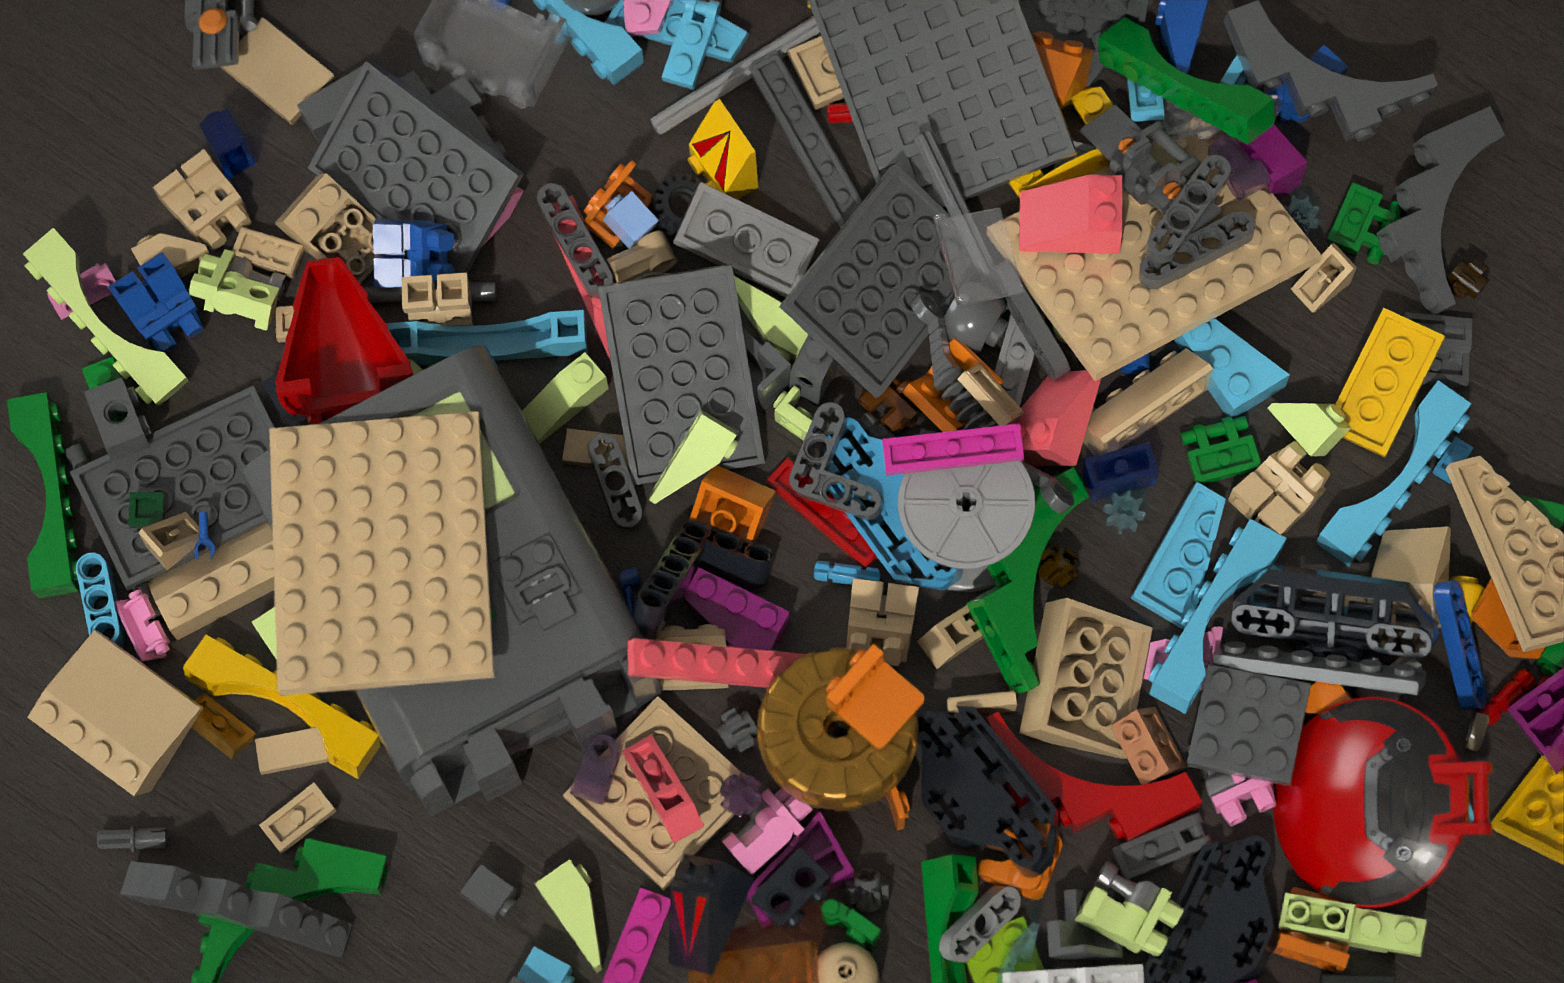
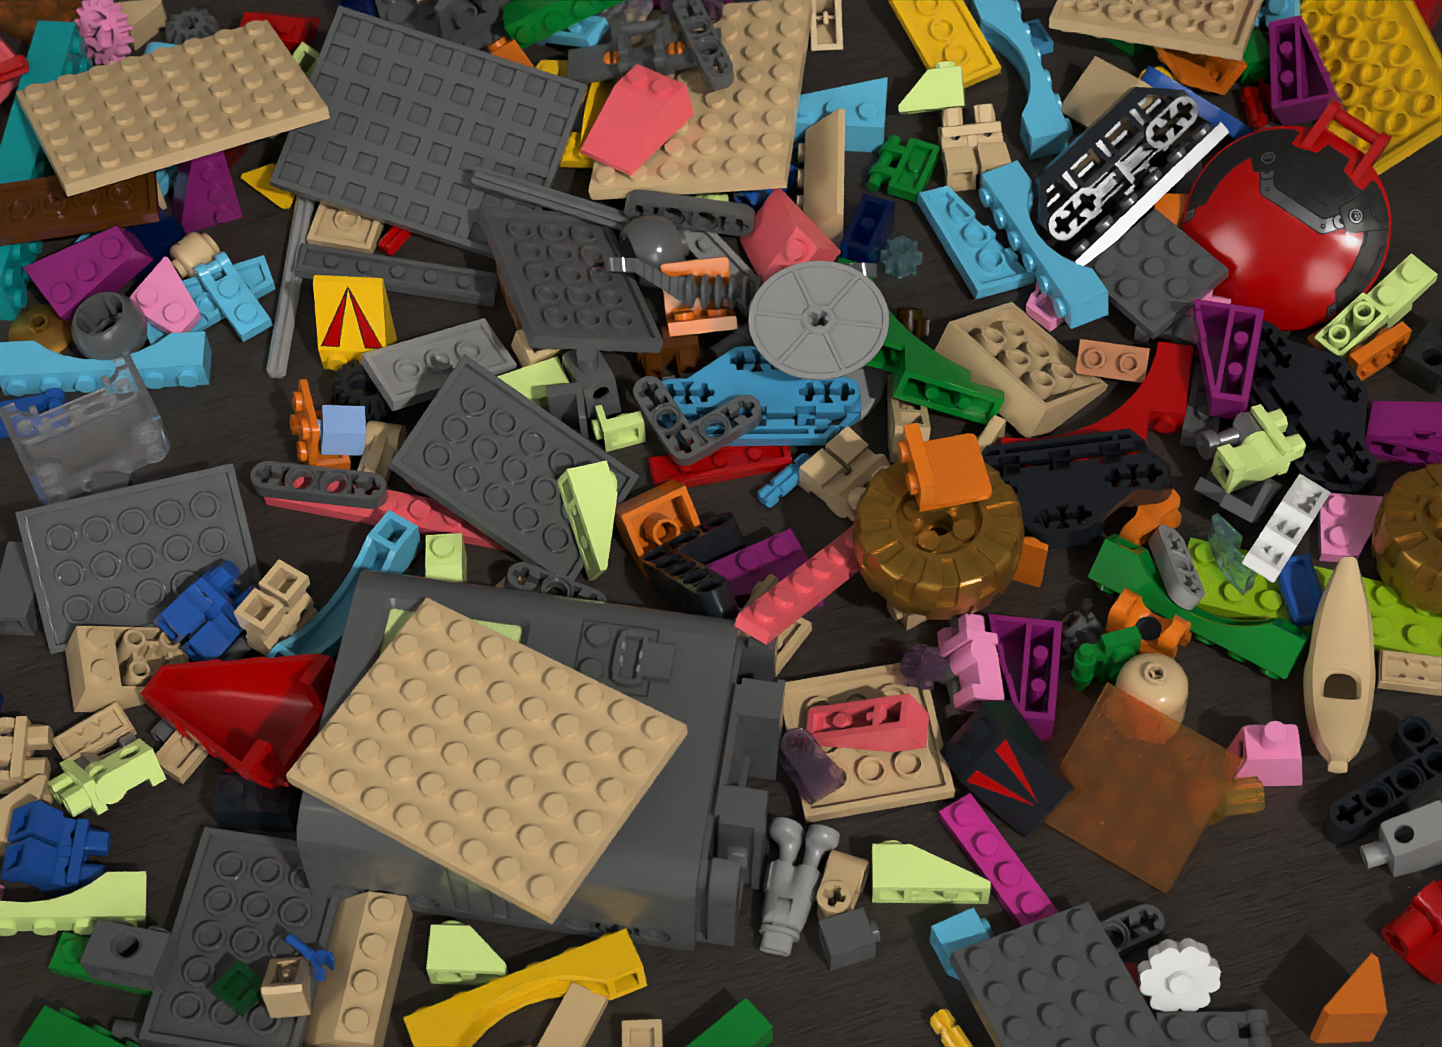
camera: 55 degrees left, 15 degrees down
(500, 824) = (789, 888): none -> light grey piece
(530, 859) = (841, 884): none -> tan piece
(737, 729) = (857, 642): dark grey gear -> none
(783, 884) = (1041, 672): black brick -> none
(903, 937) = (1157, 633): none -> orange piece
(953, 449) = (768, 294): dark pink plate -> none
(978, 256) = (610, 202): clear piece -> none
(990, 395) = (733, 266): tan tile -> none
(1200, 254) = (741, 61): dark grey beam -> none
(1201, 838) = (1228, 353): none -> magenta wedge

